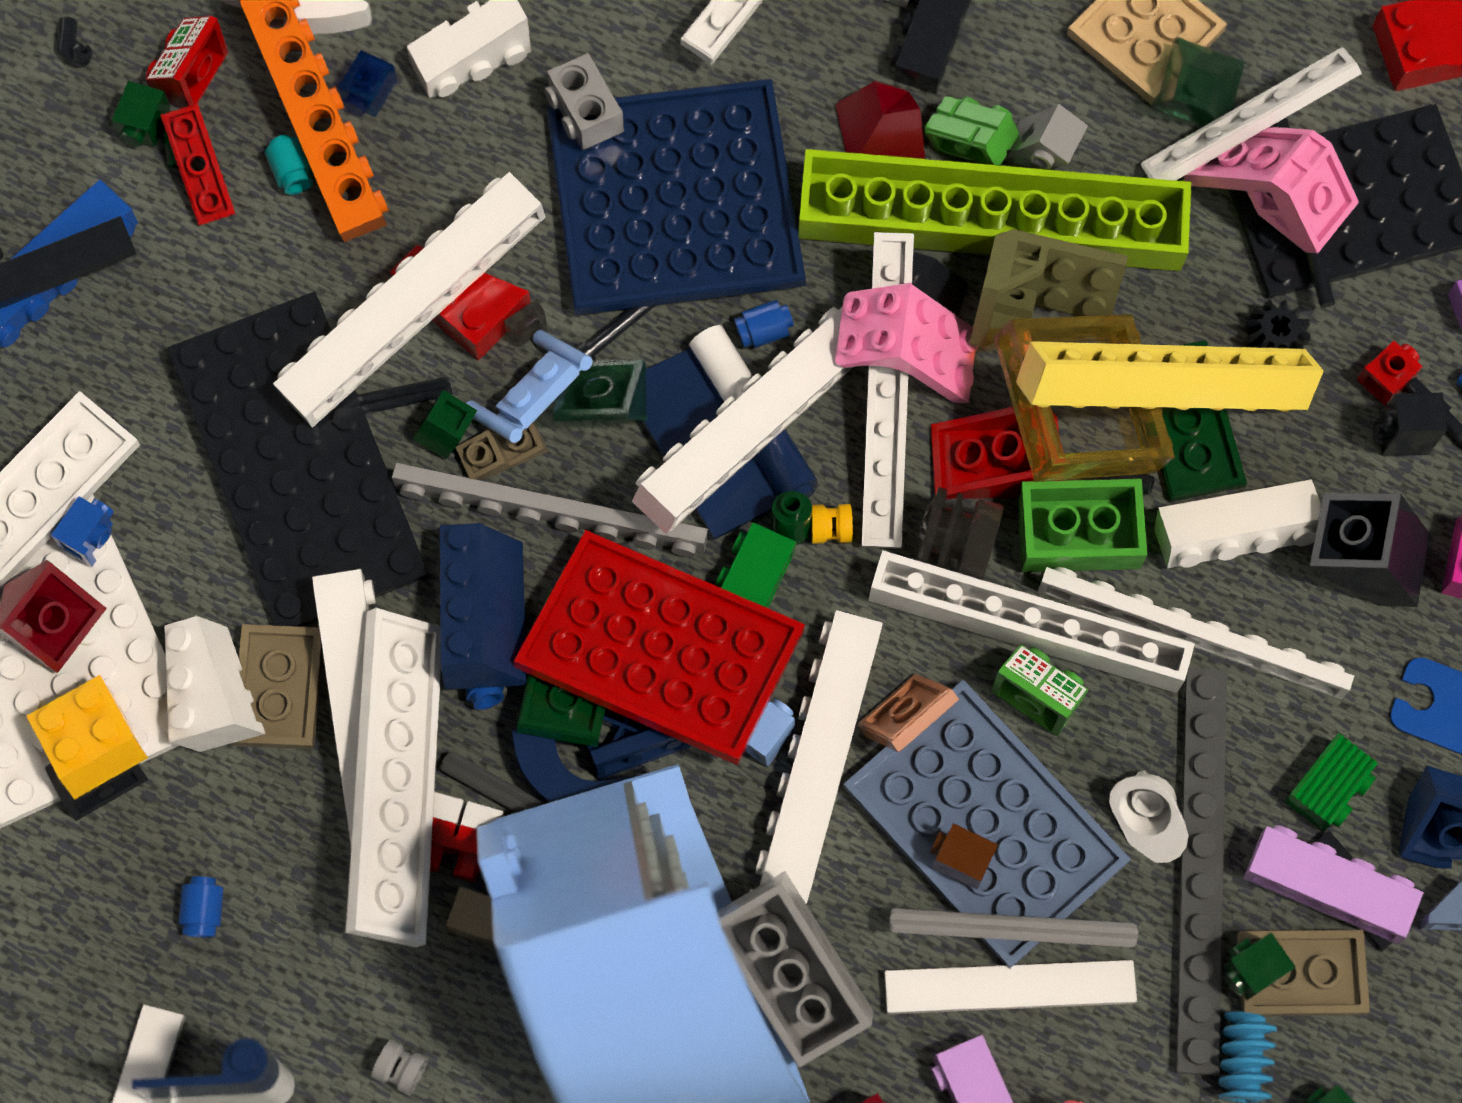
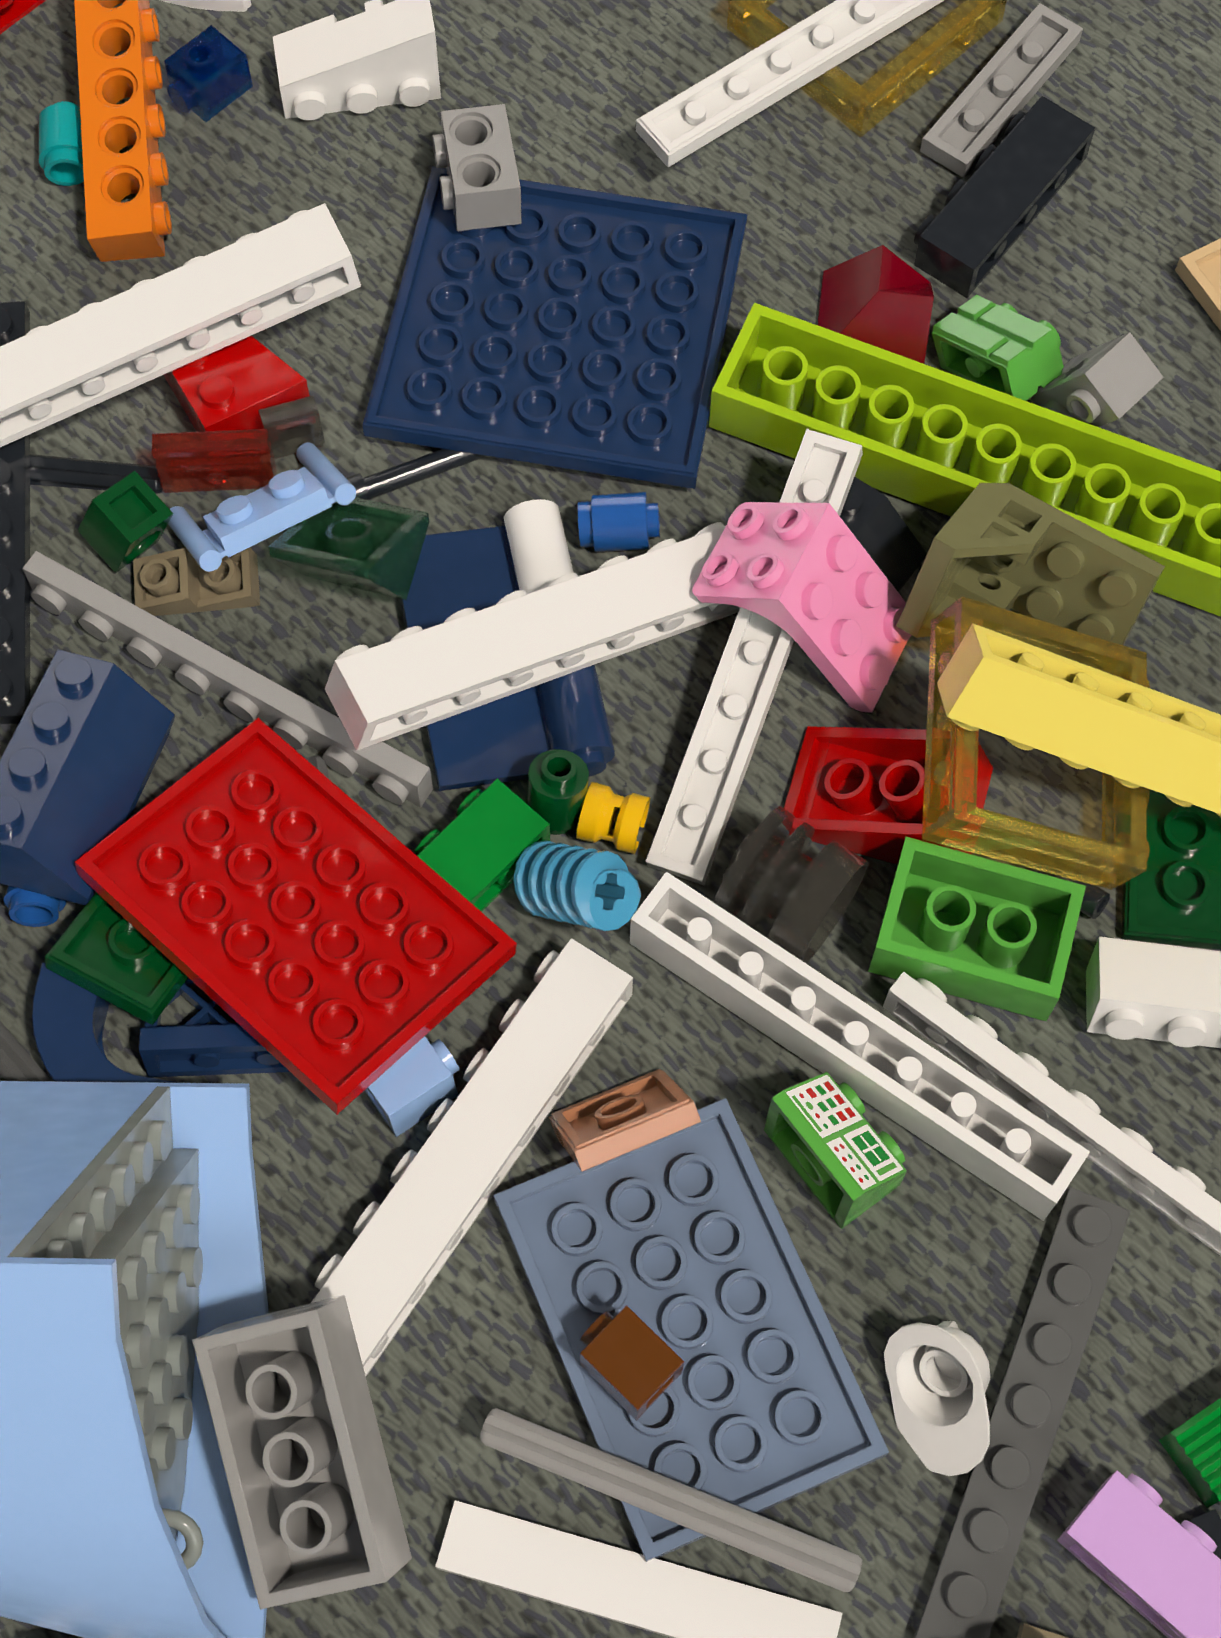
camera: 20 degrees right, 5 degrees down
(486, 364) = (213, 460): none -> clear red plate
(828, 576) = (576, 885): none -> dark azure piece

